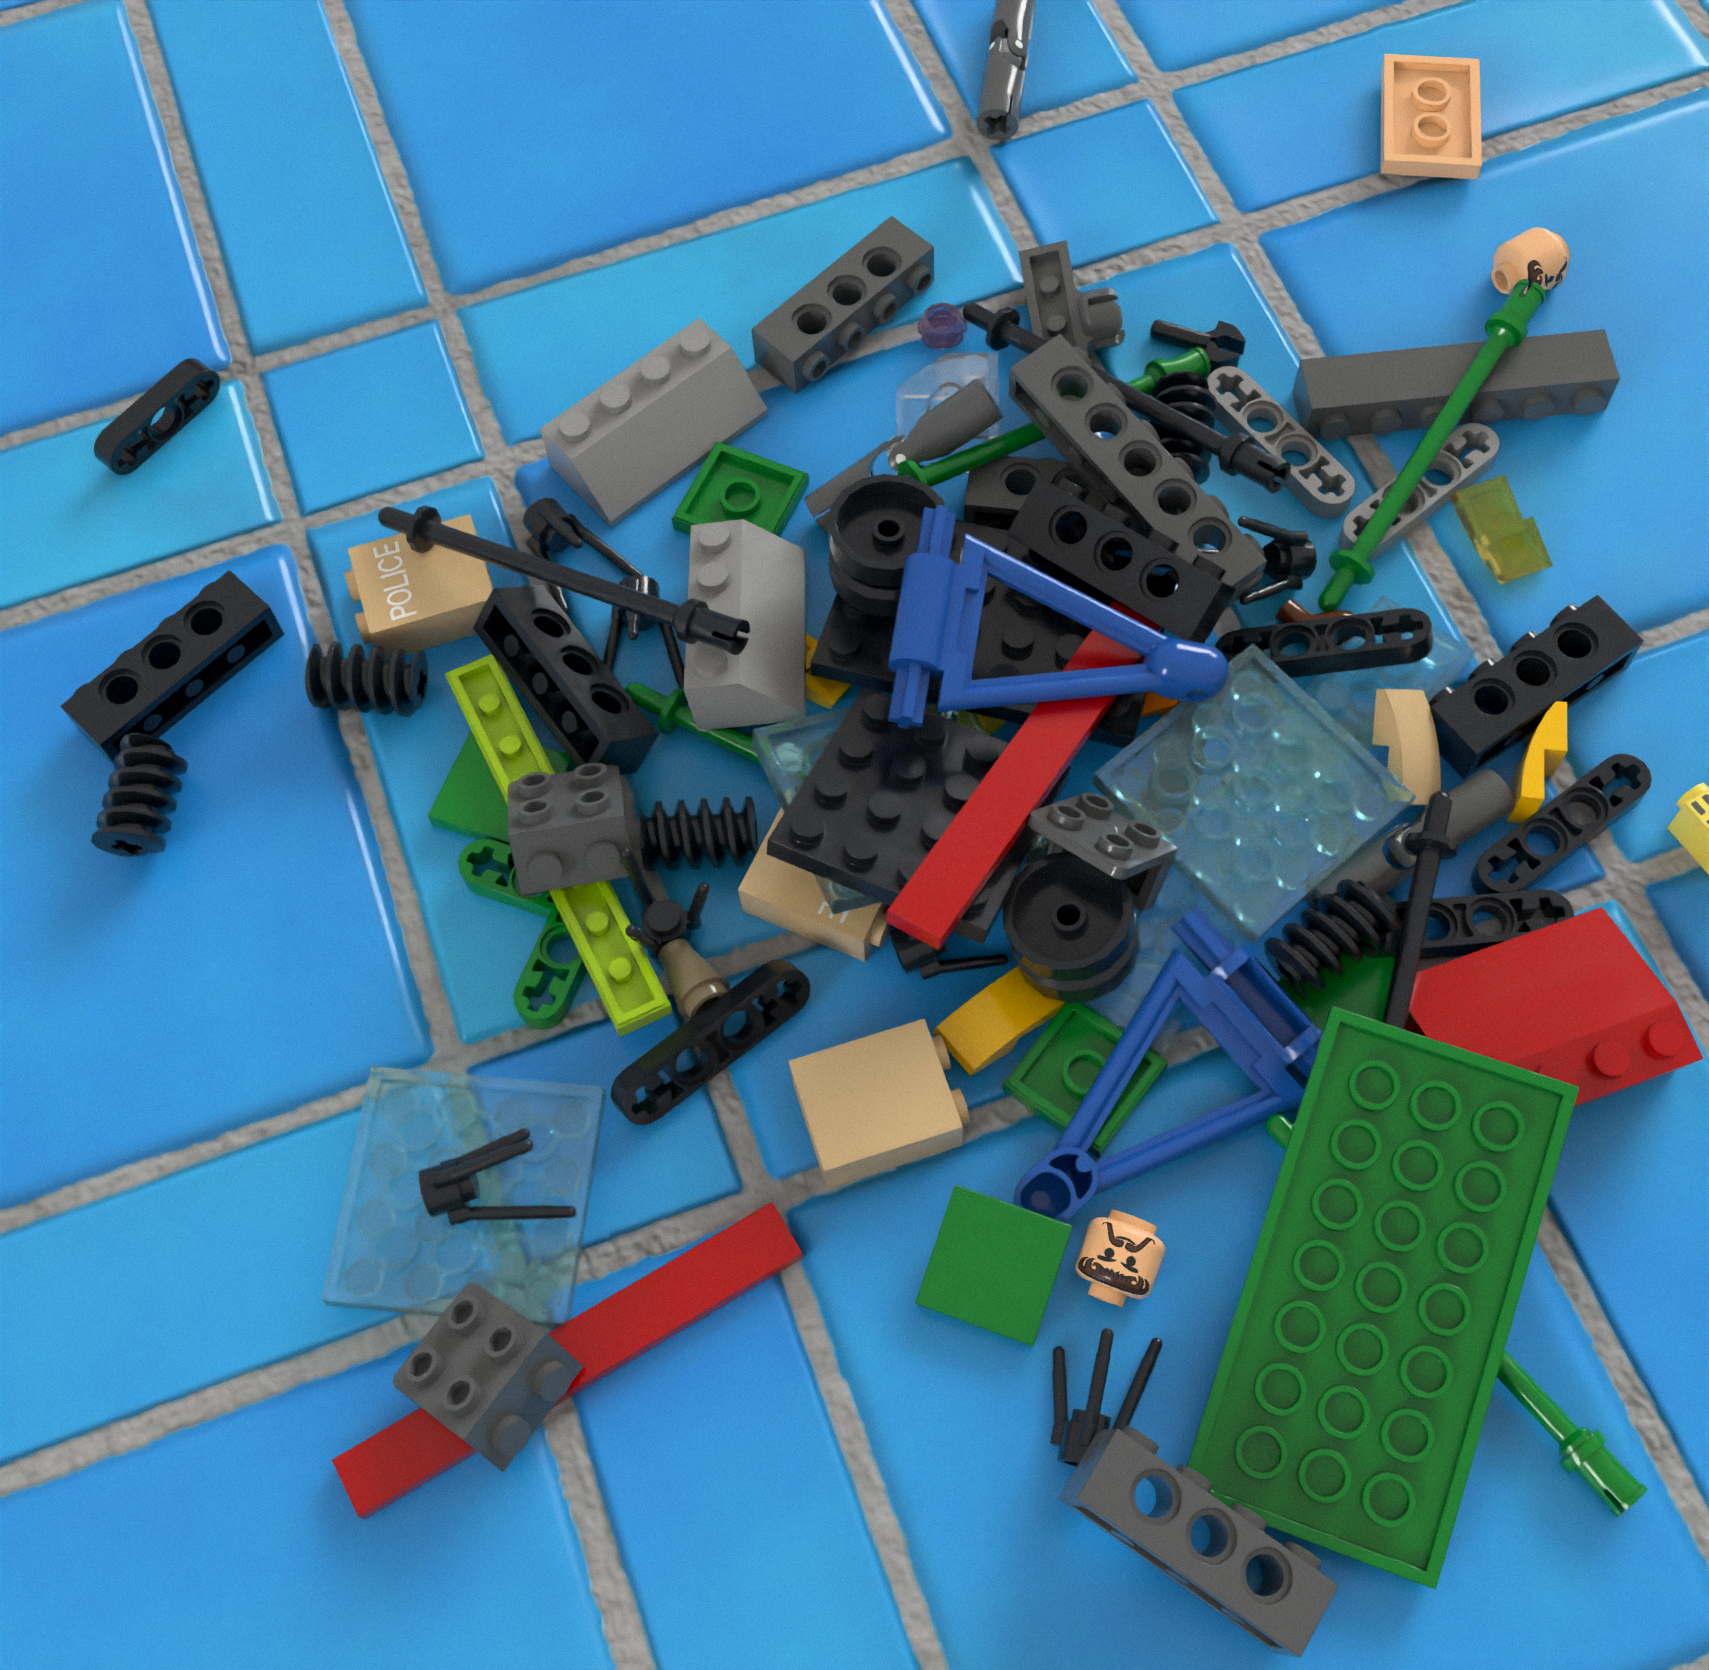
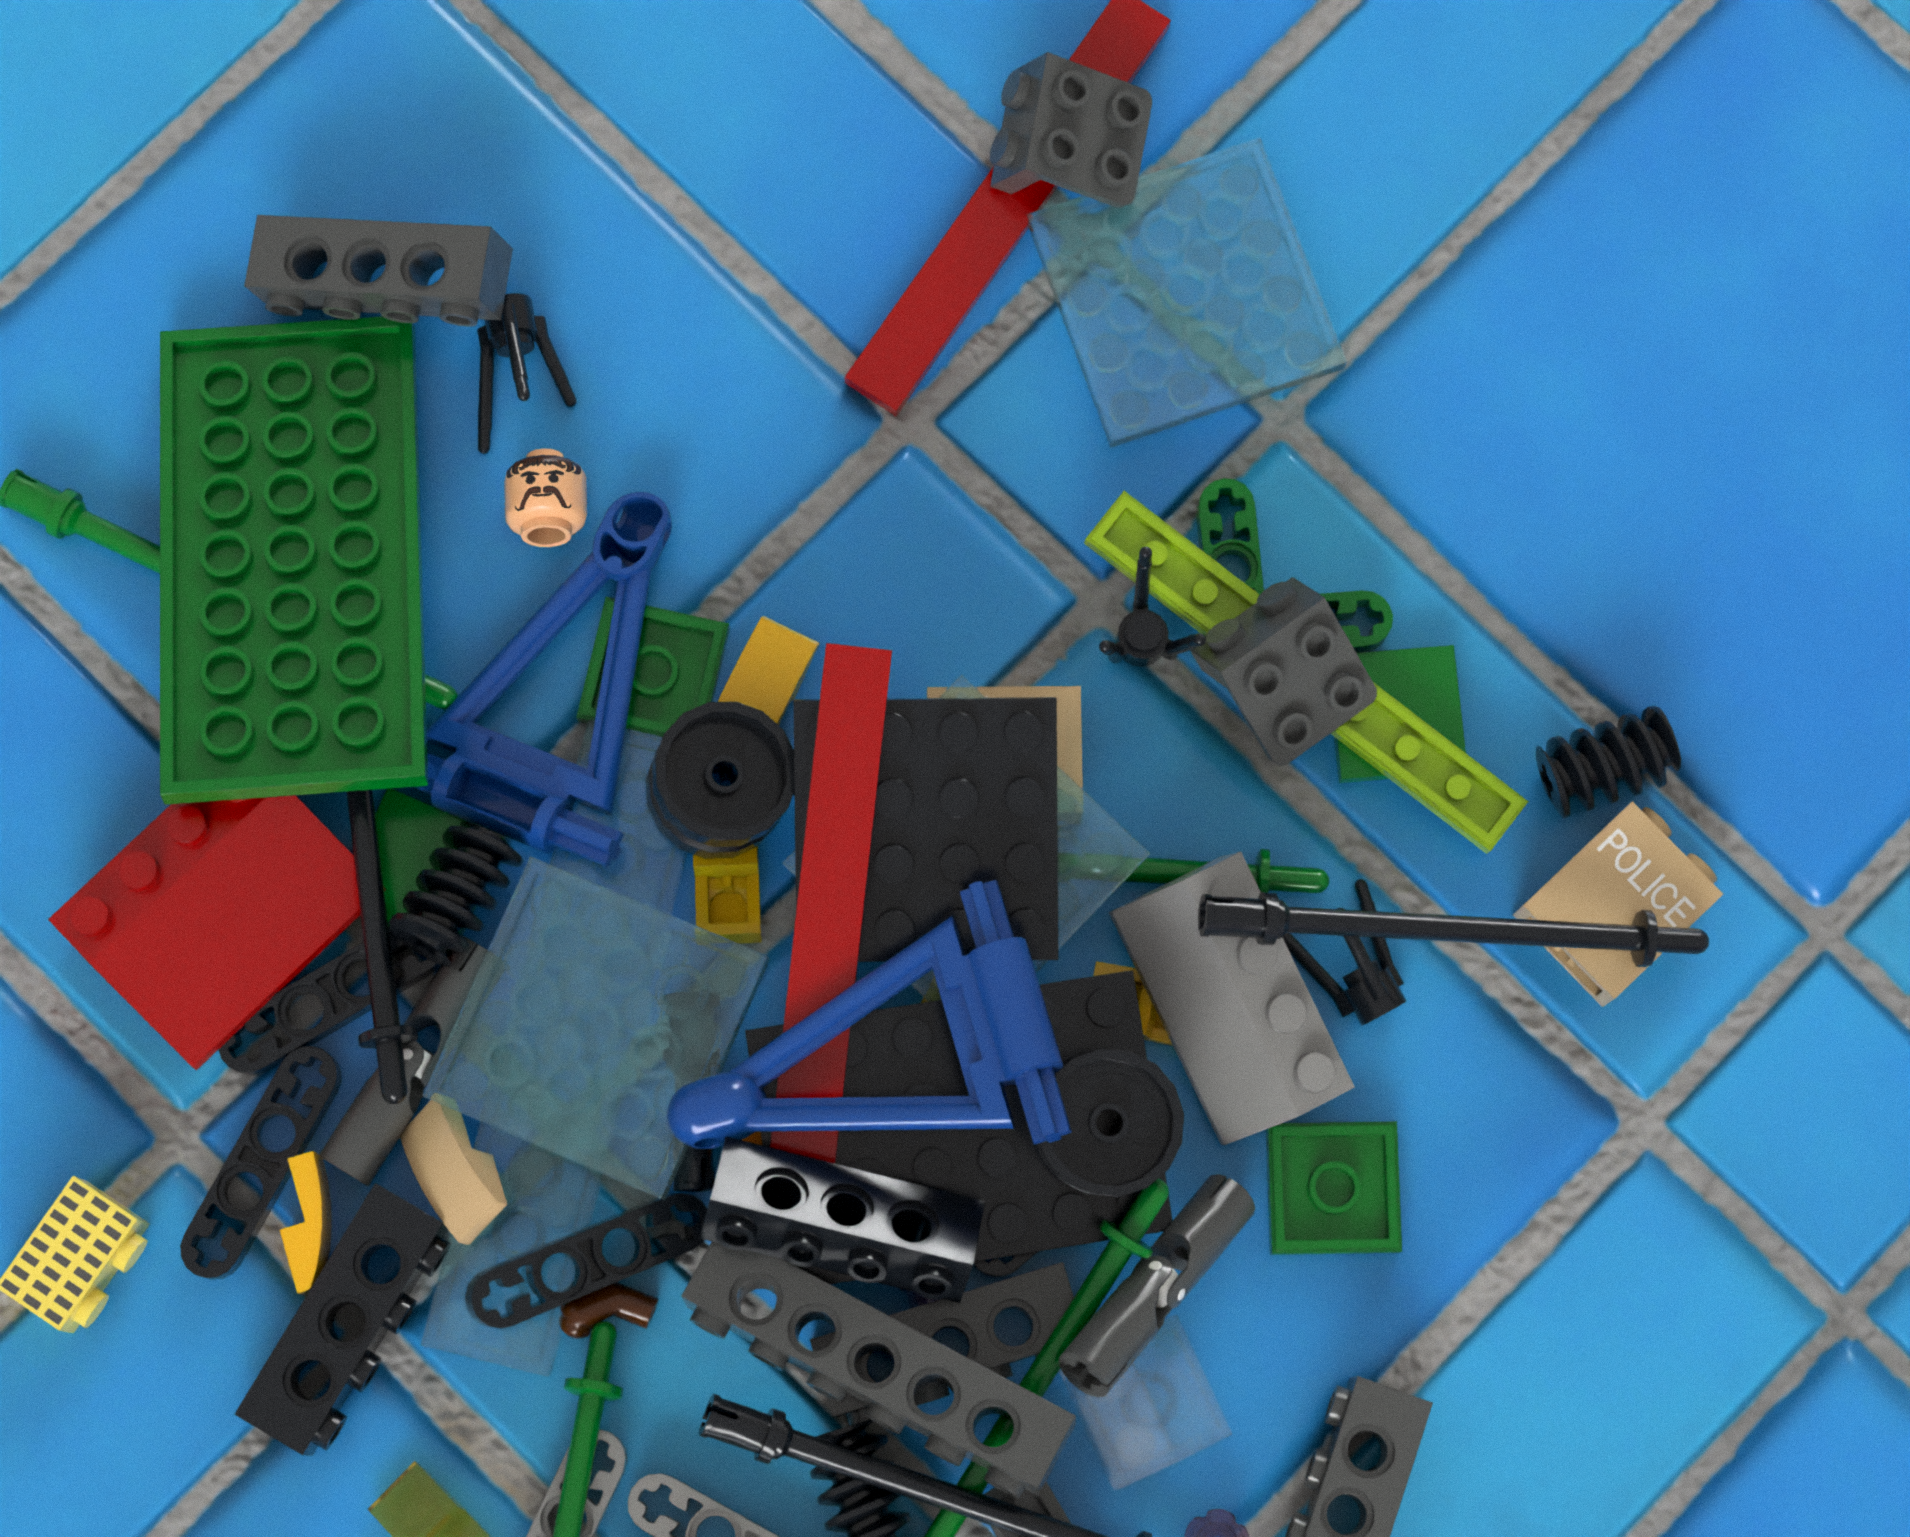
camera: 145 degrees right, 15 degrees up
(139, 797) = (1755, 525): black piece -> none
(201, 659) = (1784, 770): black brick -> none
(454, 1184) = (1187, 273): black plant -> none
(556, 531) = (1523, 1039): black plant -> none
(564, 679) = (1380, 818): black brick -> none
(653, 422) = (1483, 1237): light grey slope -> none
(691, 978) = (1082, 589): dark tan cone -> none
(698, 835) = (1156, 740): black piece -> none
(707, 1033) = (1031, 535): black beam -> none
(878, 1102) = (839, 545): tan brick -> none
(994, 1264) = (660, 441): green tile -> none
(1108, 842) = (725, 869): dark grey bracket -> none
(1288, 558) = (679, 1367): black plant -> none

